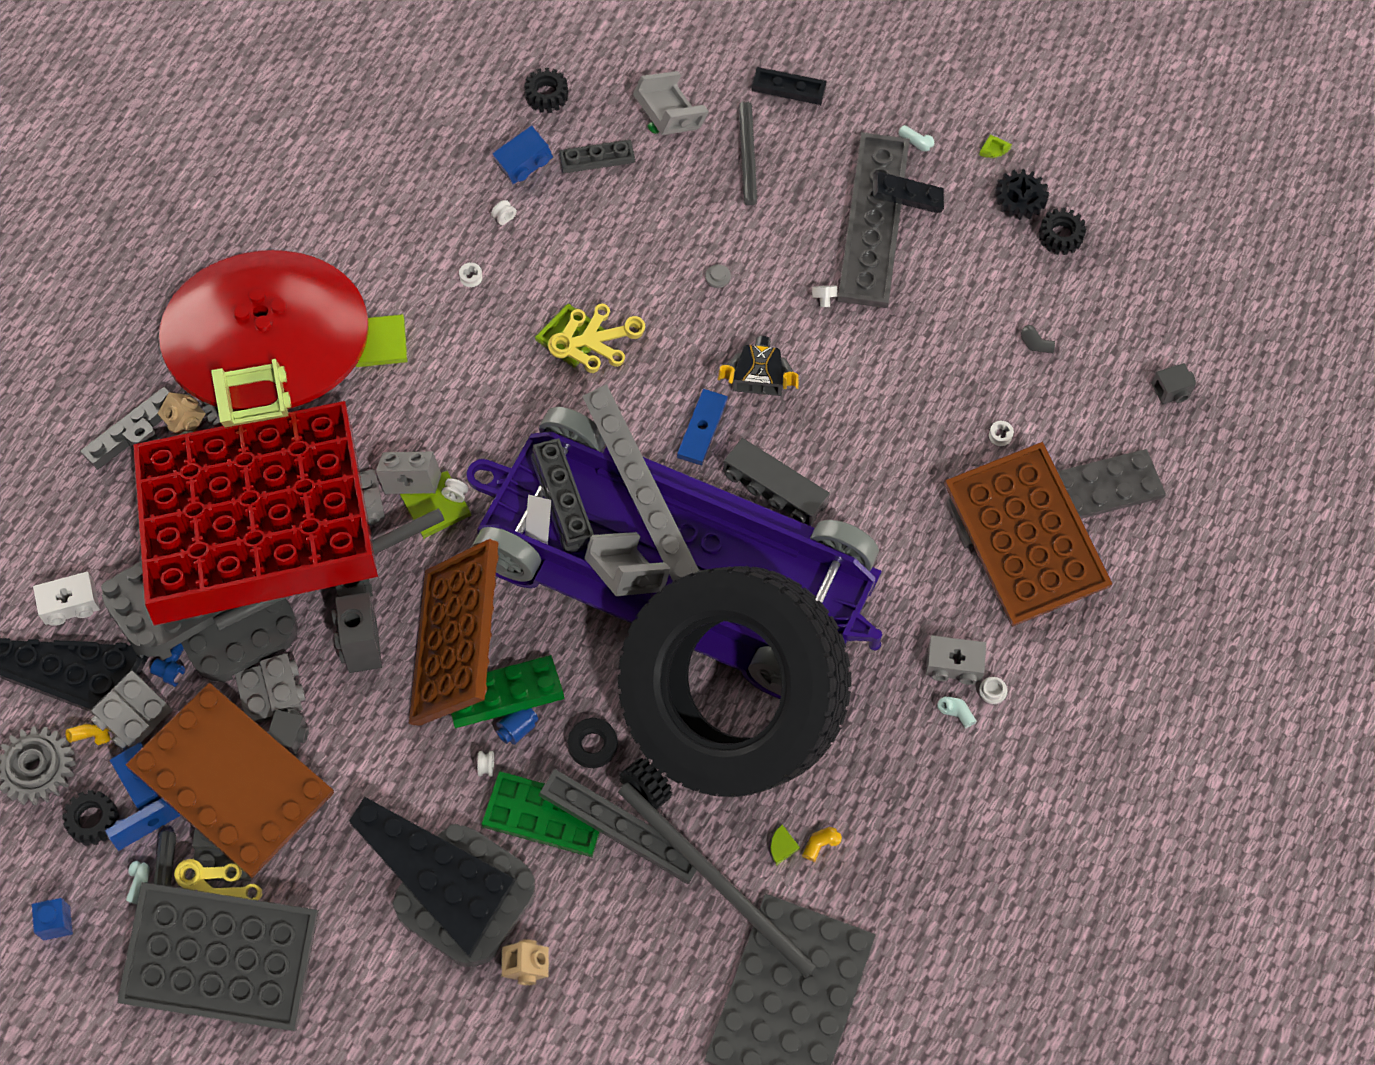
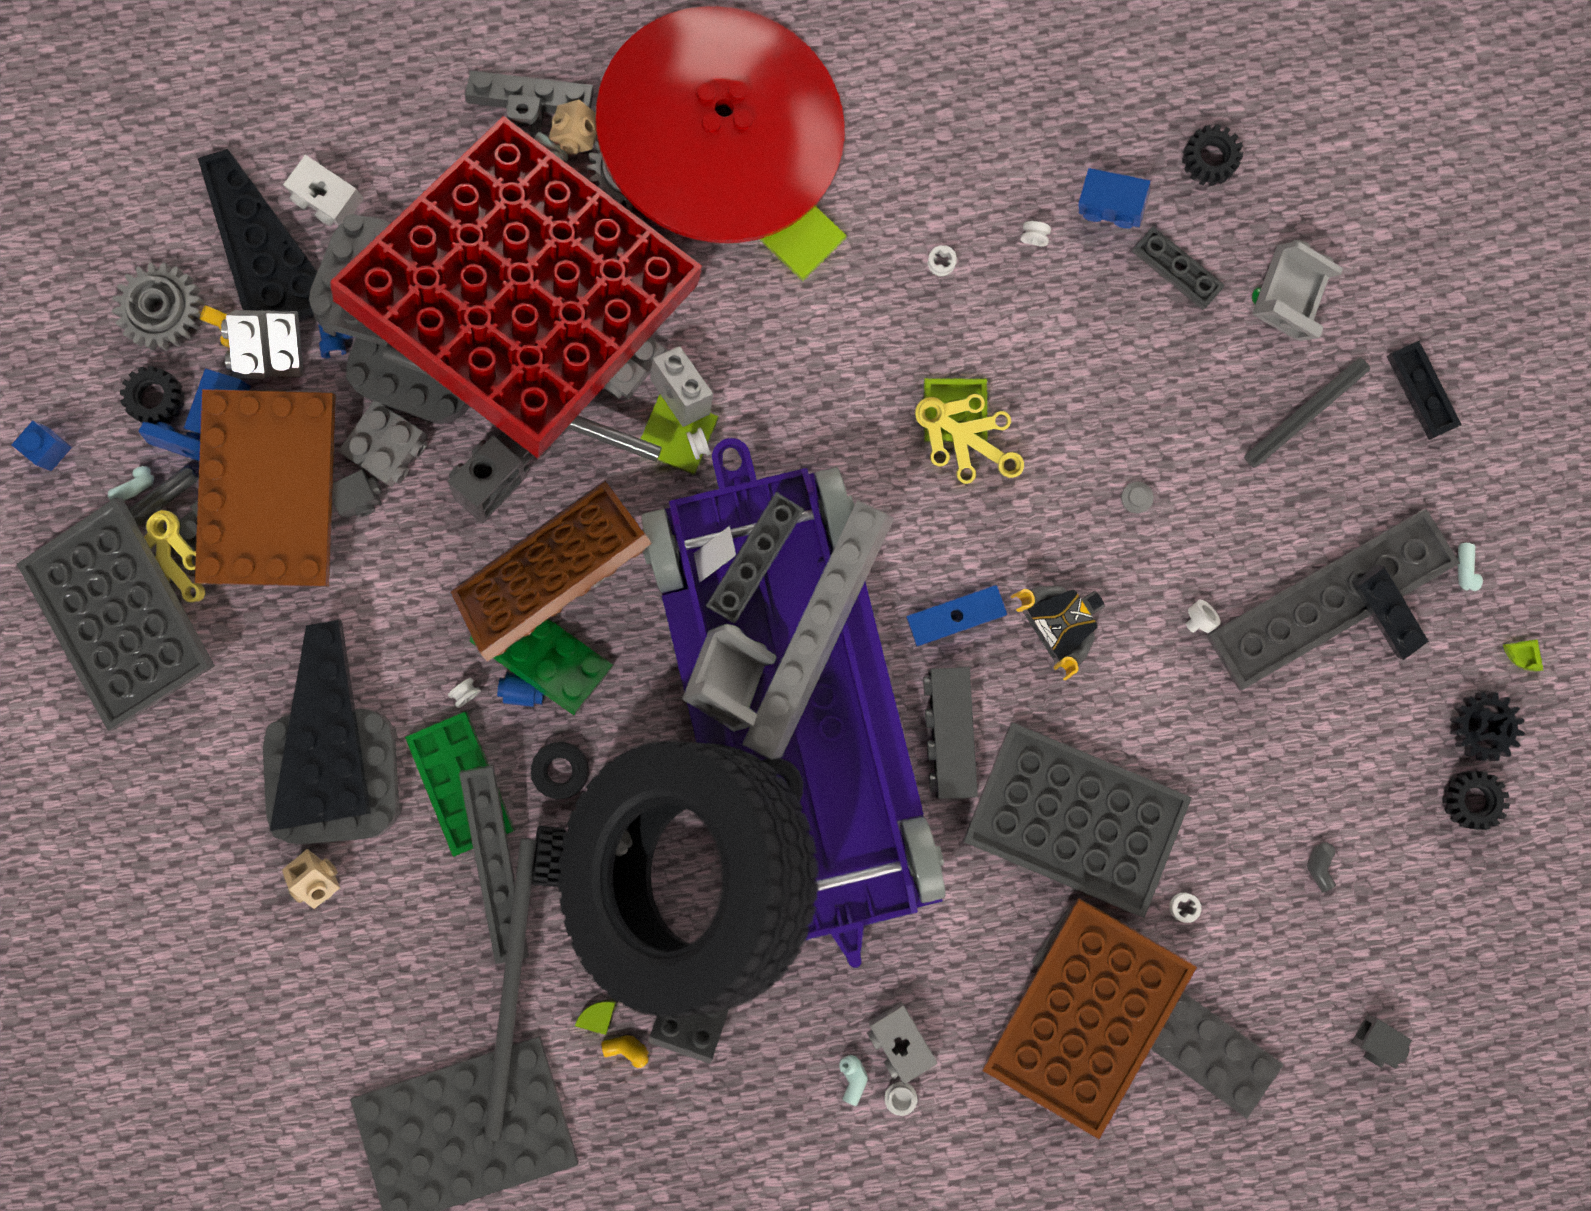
camera: 50 degrees right, 20 degrees up
(224, 380) = (605, 156): yellowish green panel -> none
(834, 780) = (690, 1035): none -> dark grey plate
(892, 453) = (1077, 819): none -> dark grey plate

